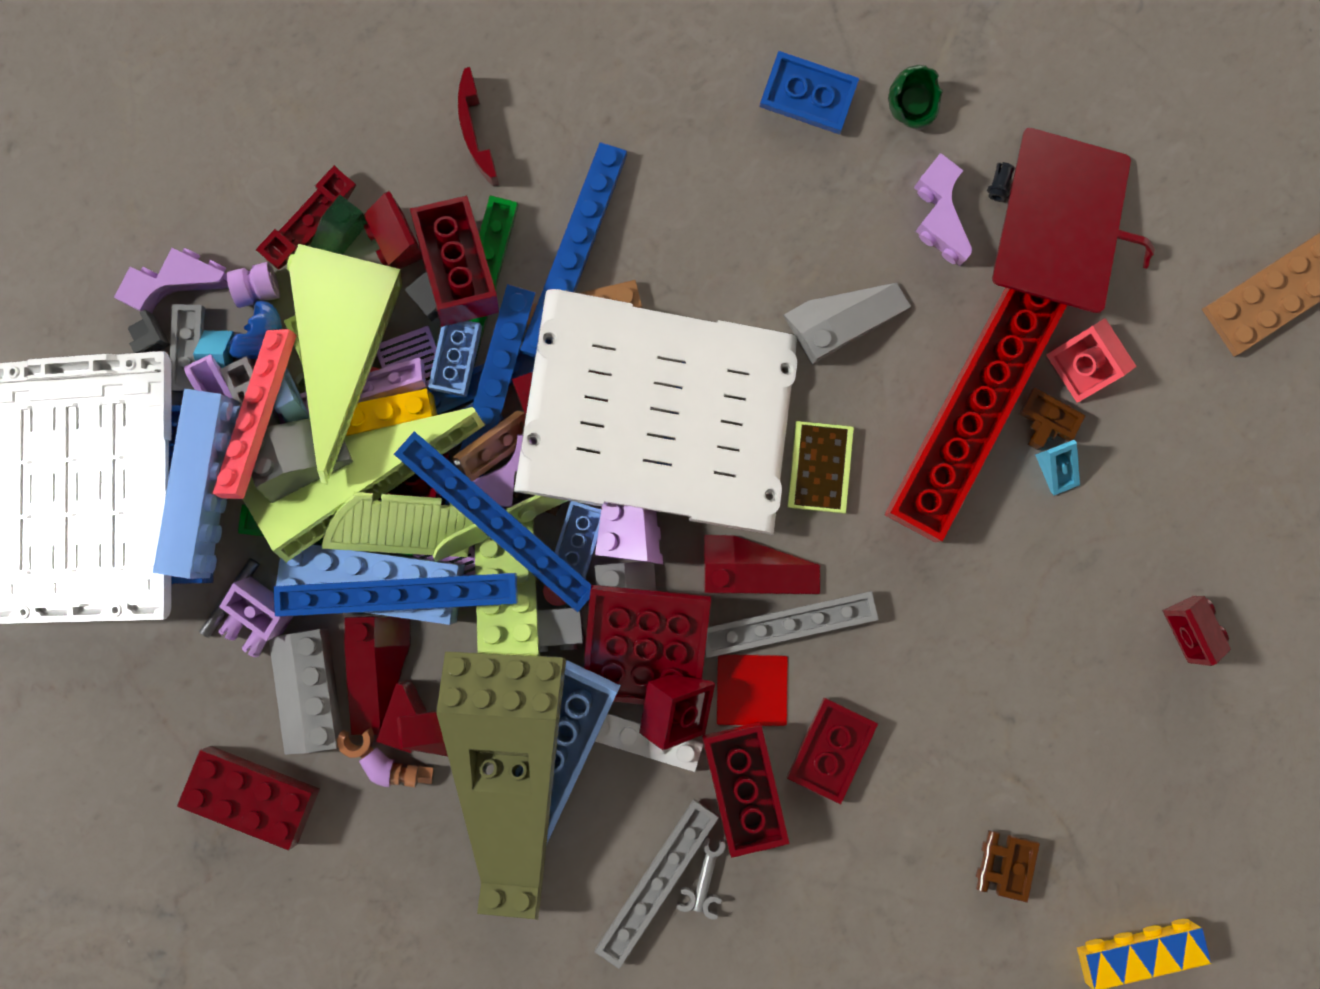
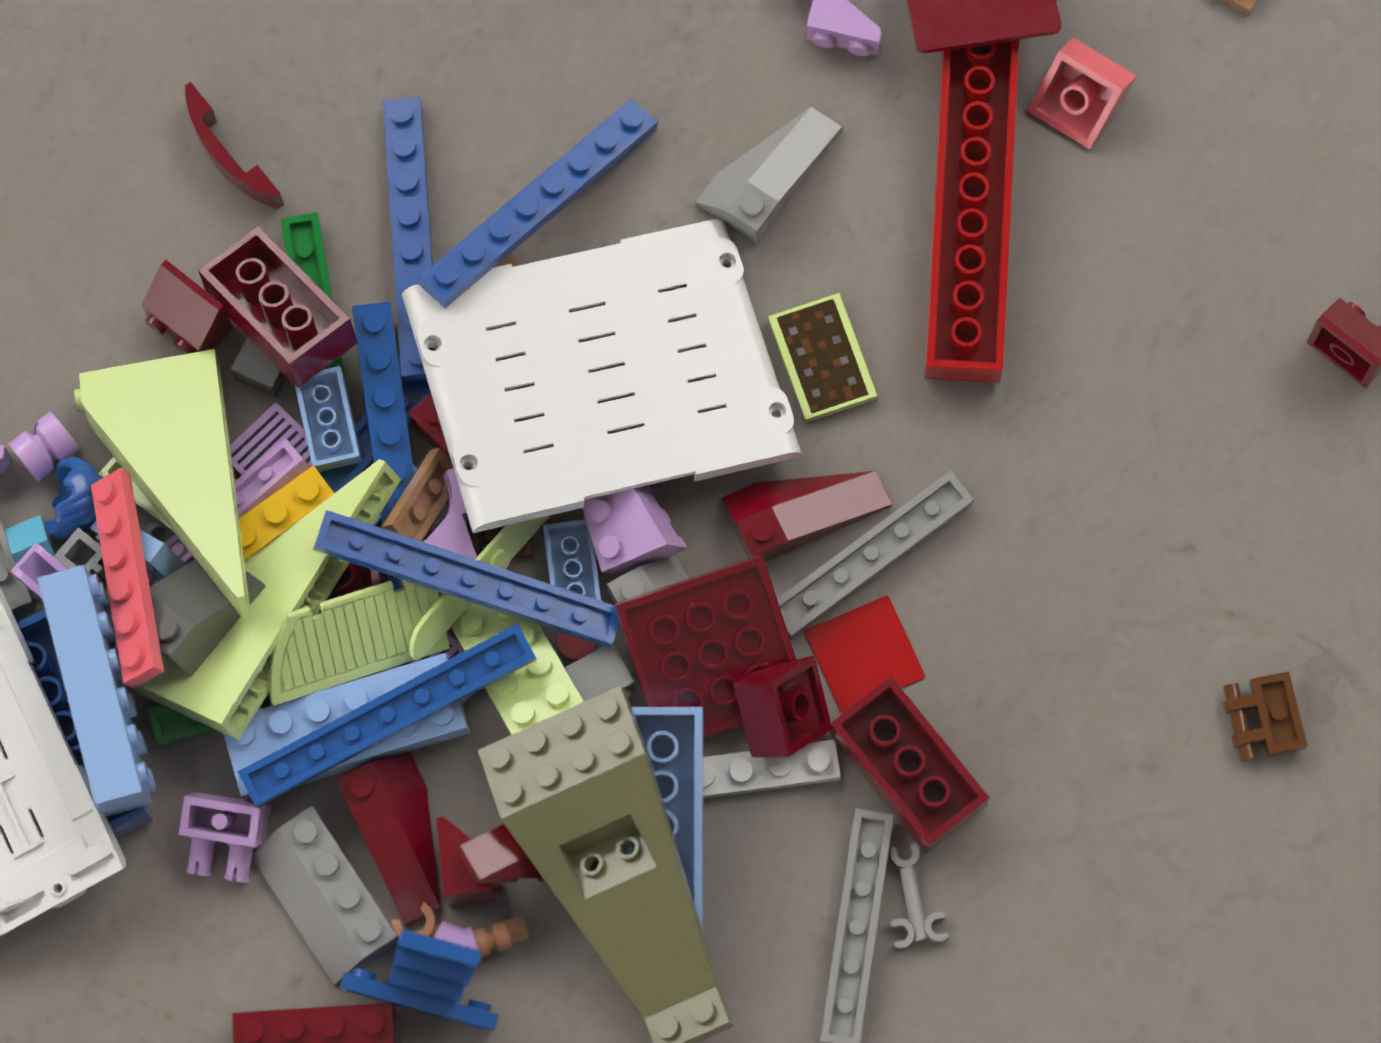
camera: 15 degrees left, 10 degrees down
(218, 613) = (178, 842): flat silver bar -> none
(304, 223) = (75, 341): dark red slope -> none
(338, 793) = (428, 979): none -> blue slope
(339, 226) = (116, 332): clear green slope -> none
(671, 267) = (537, 203): none -> blue plate
(832, 750) = (992, 677): dark red plate -> none
(1050, 418) = (1065, 180): reddish brown hinge -> none
(1060, 467) = (1103, 228): medium azure slope -> none

